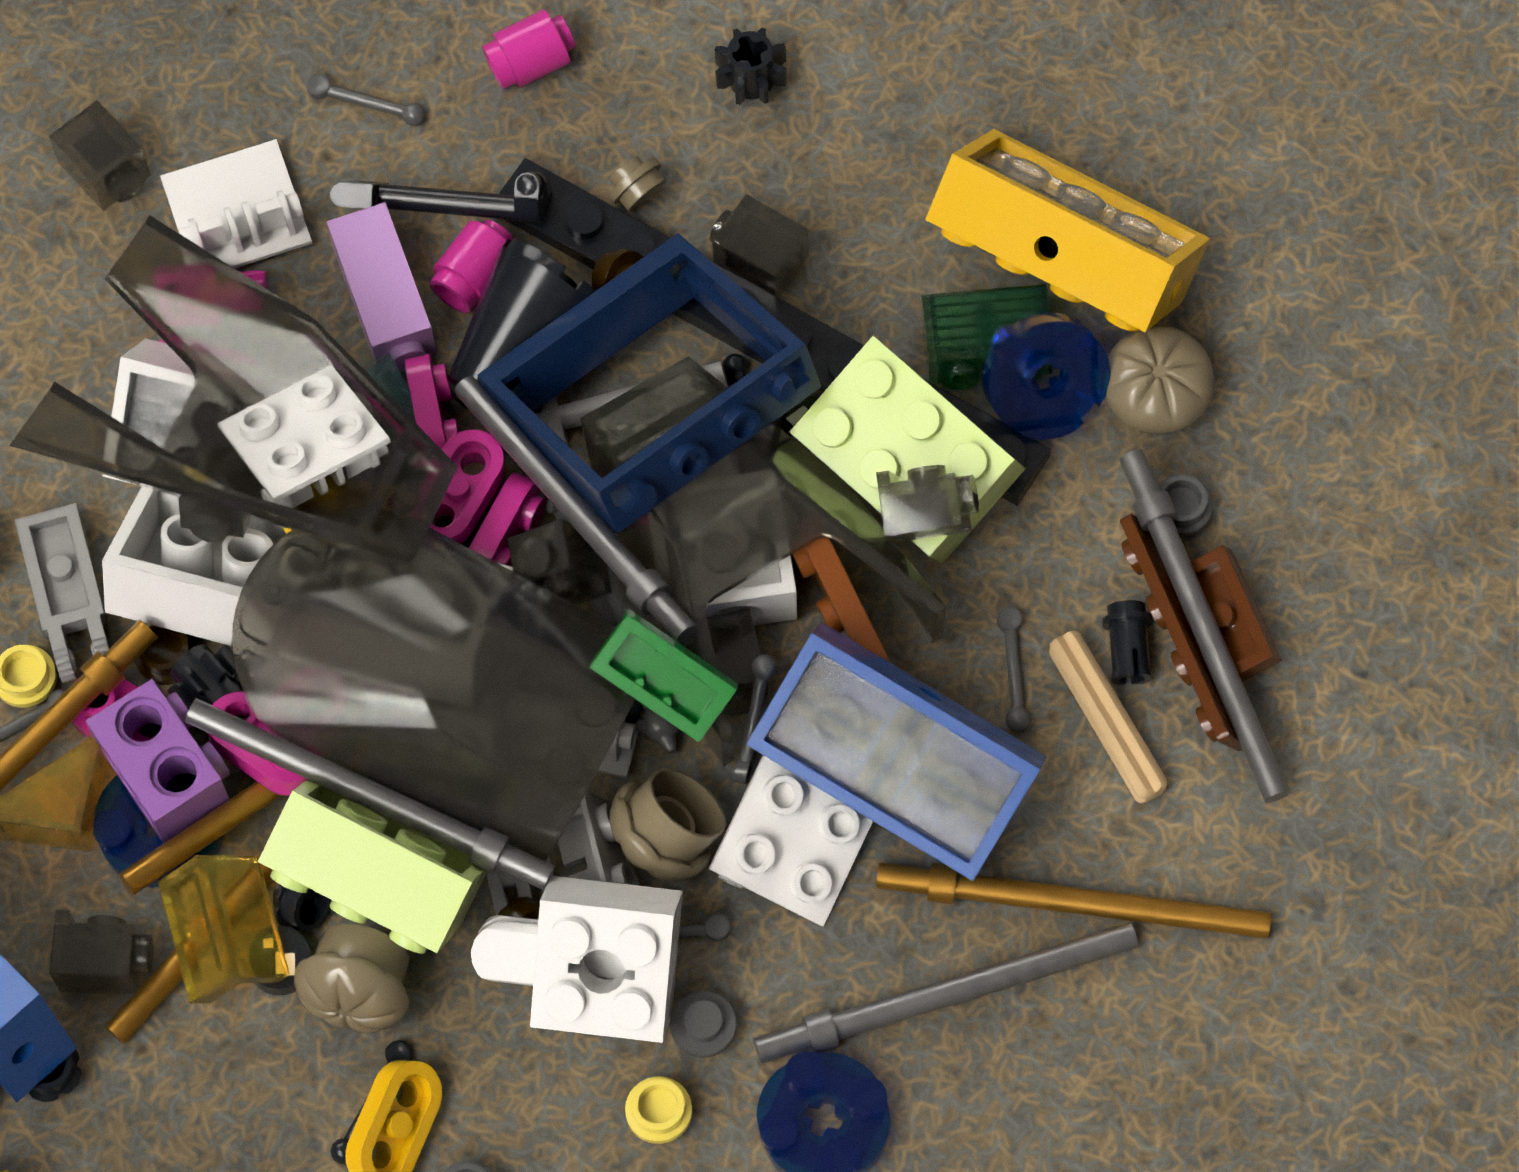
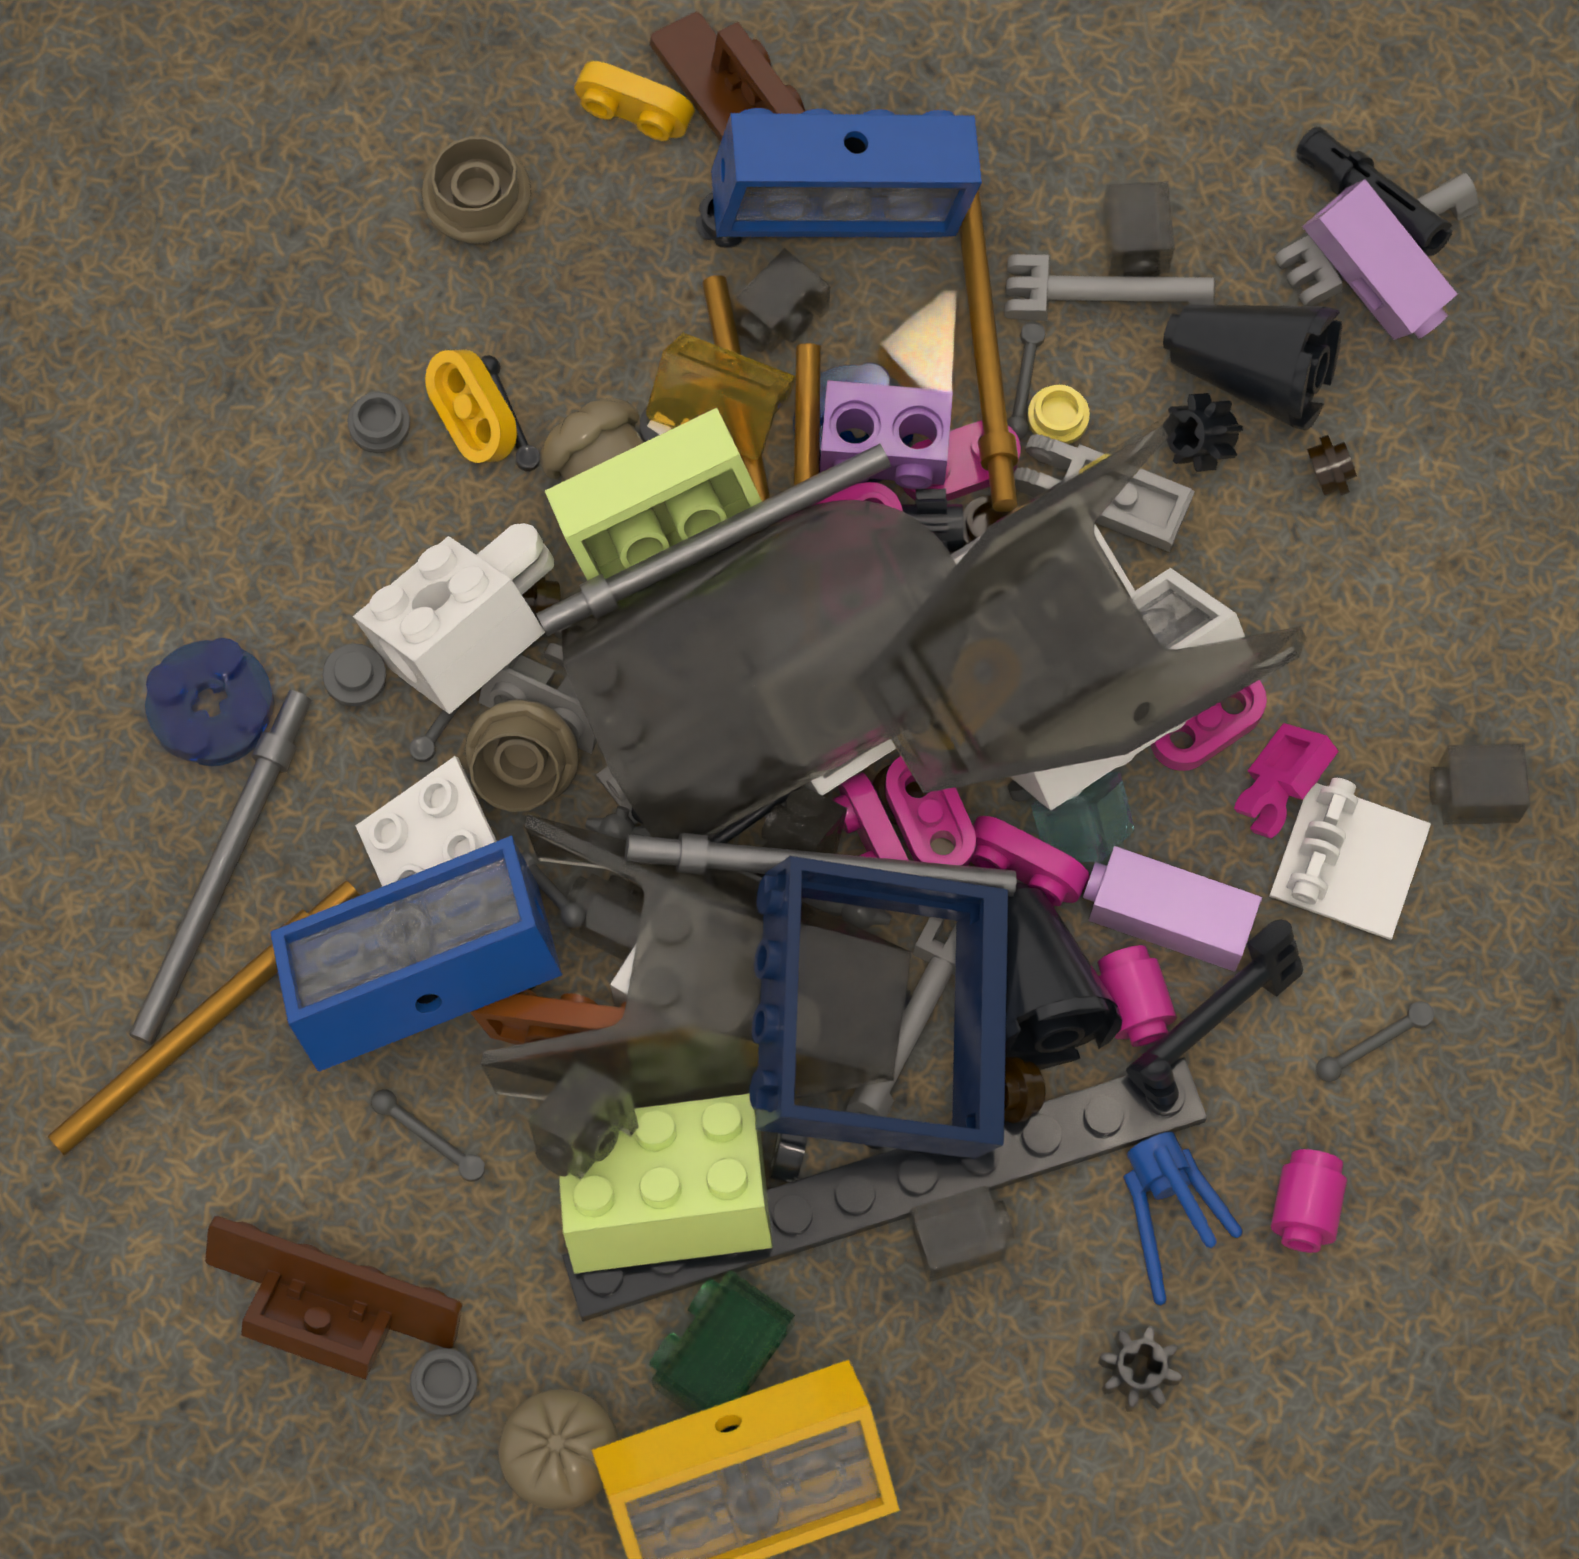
camera: 125 degrees right, 5 degrees up
(306, 435) = (1024, 665): white hinge -> none
(588, 154) = (1166, 1171): none -> blue plant
(636, 182) = (1105, 1186): dark tan plate -> none
(658, 1110) = (320, 595): light yellow plate -> none
(664, 675) = (604, 797): green tile -> none
(1020, 352) = (638, 1380): clear blue plate -> none
(1108, 717) = (323, 1169): tan axle -> none
(1129, 642) = (367, 1237): black pin -> none
(1156, 514) = (441, 1336): flat silver bar -> none

